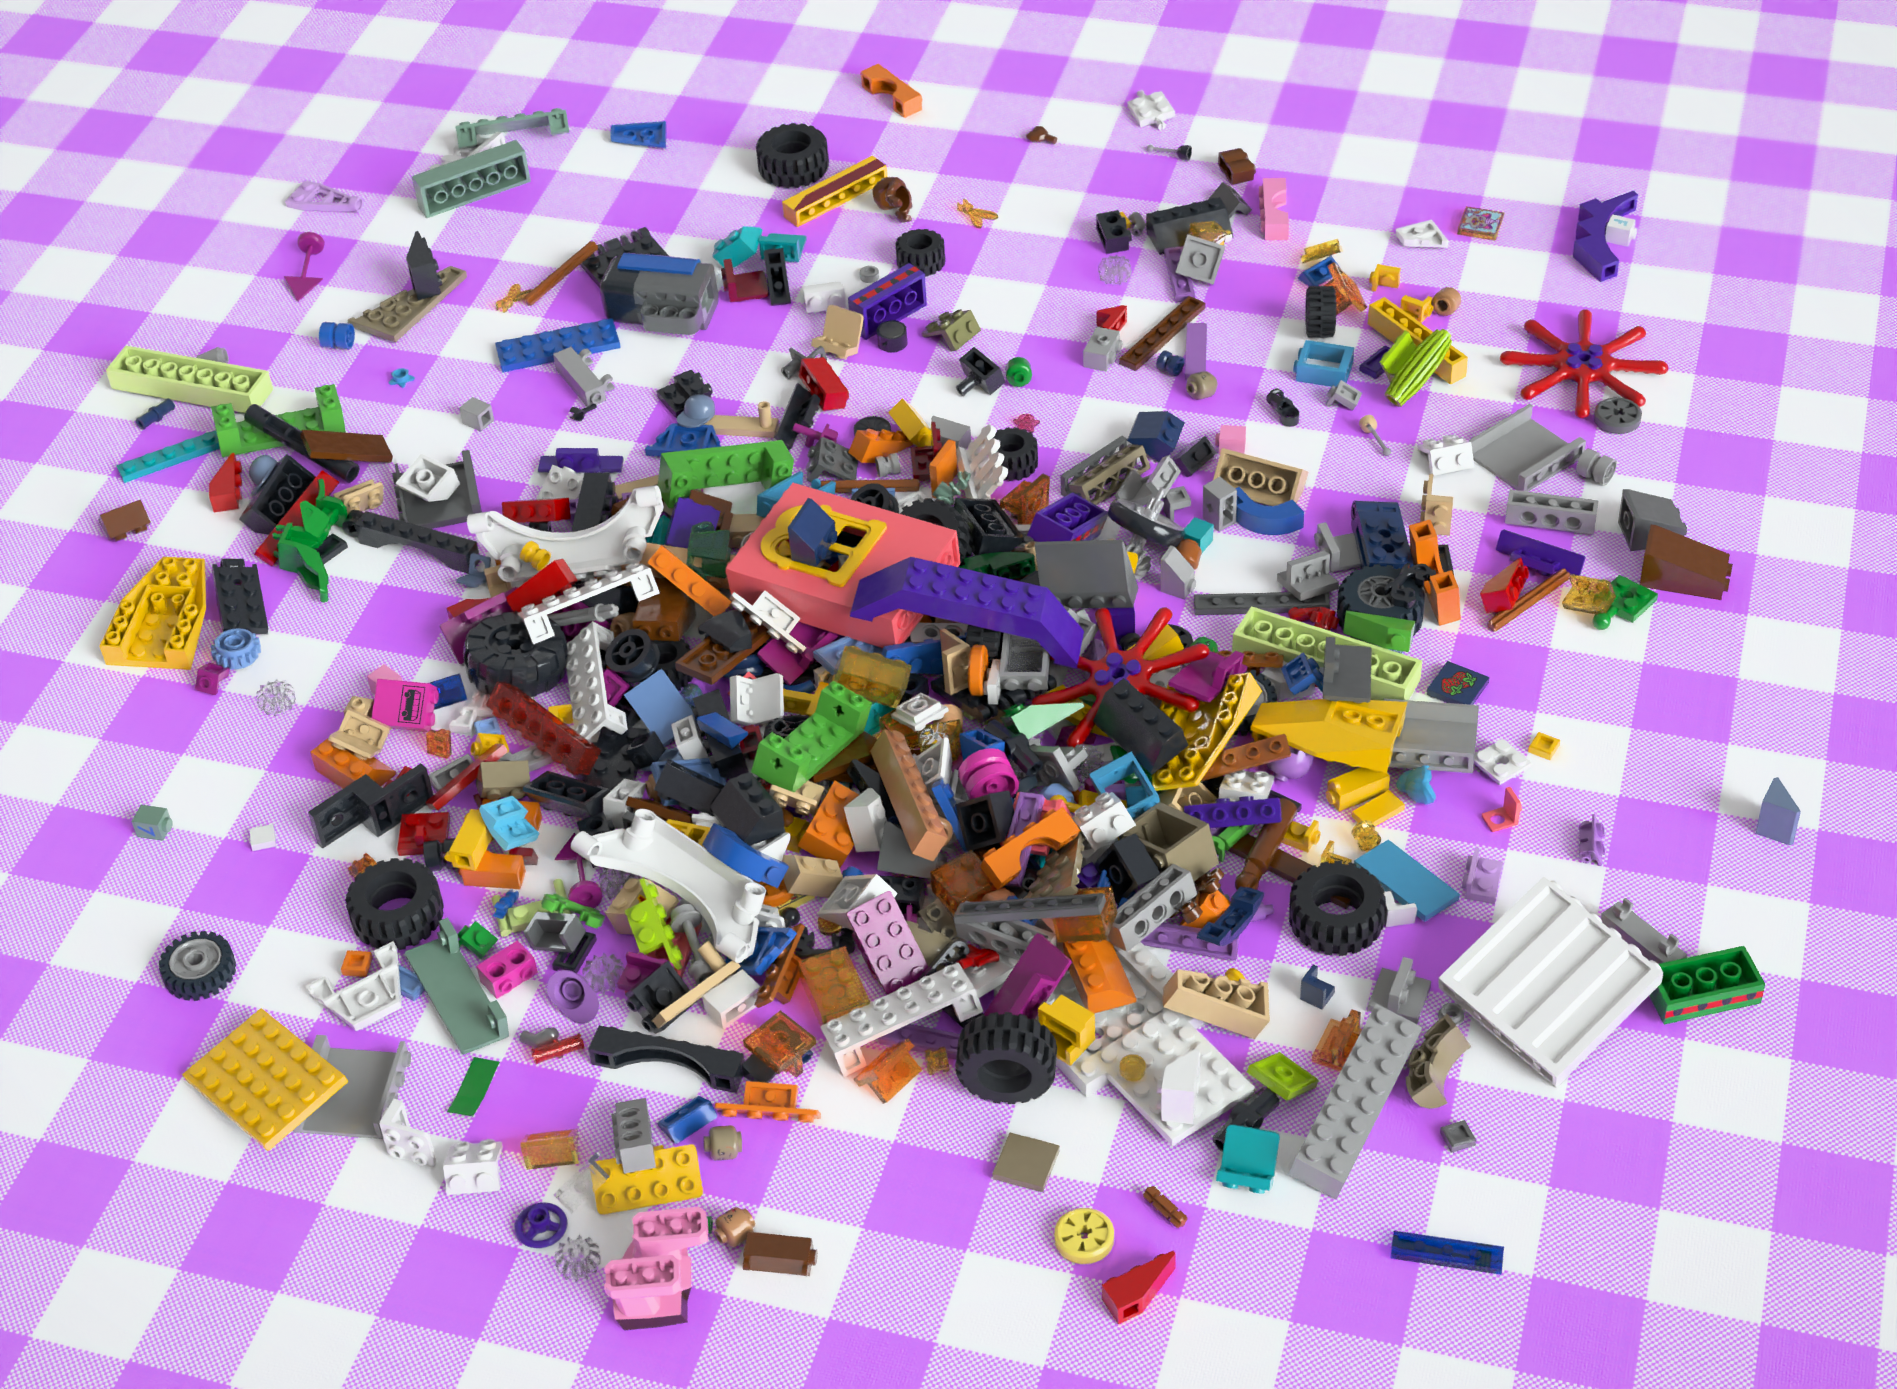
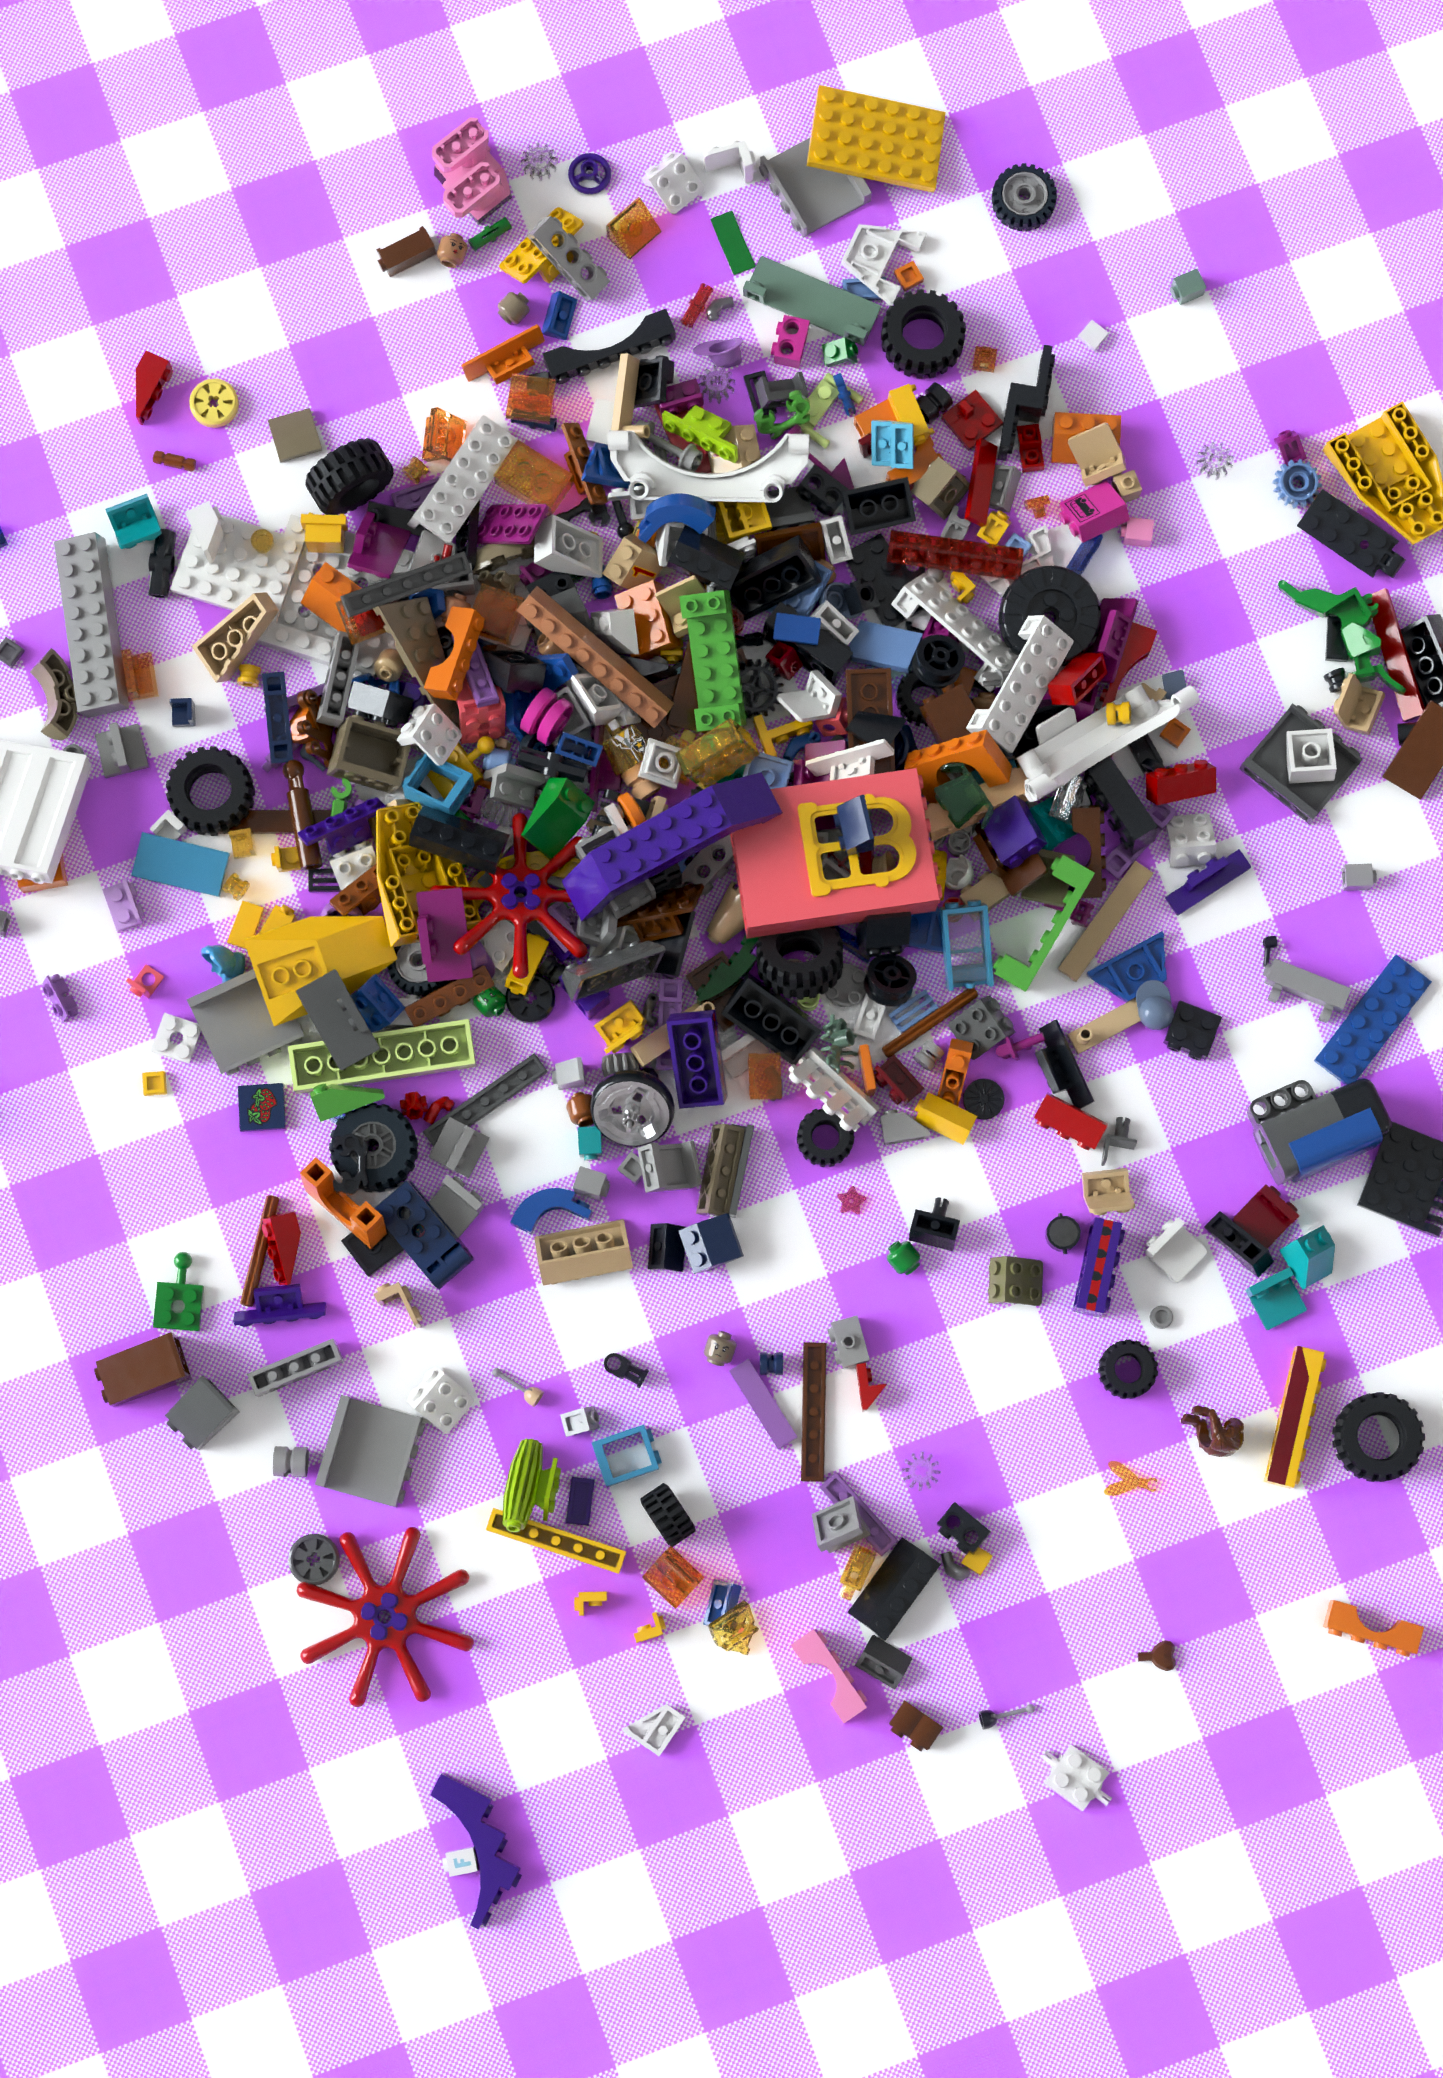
camera: 140 degrees right, 35 degrees up
(380, 530) = (1284, 685): black arch -> none
(581, 1184) = (584, 208): clear panel -> none
(1231, 438) = (642, 1289): bright pink brick -> none
(1282, 1076) = (158, 615): lime tile -> none
(1446, 301) = (567, 1628): medium nougat head -> none
(1480, 223) = (611, 1792): tile -> none
(1589, 595) = (204, 1275): clear yellow bracket -> none

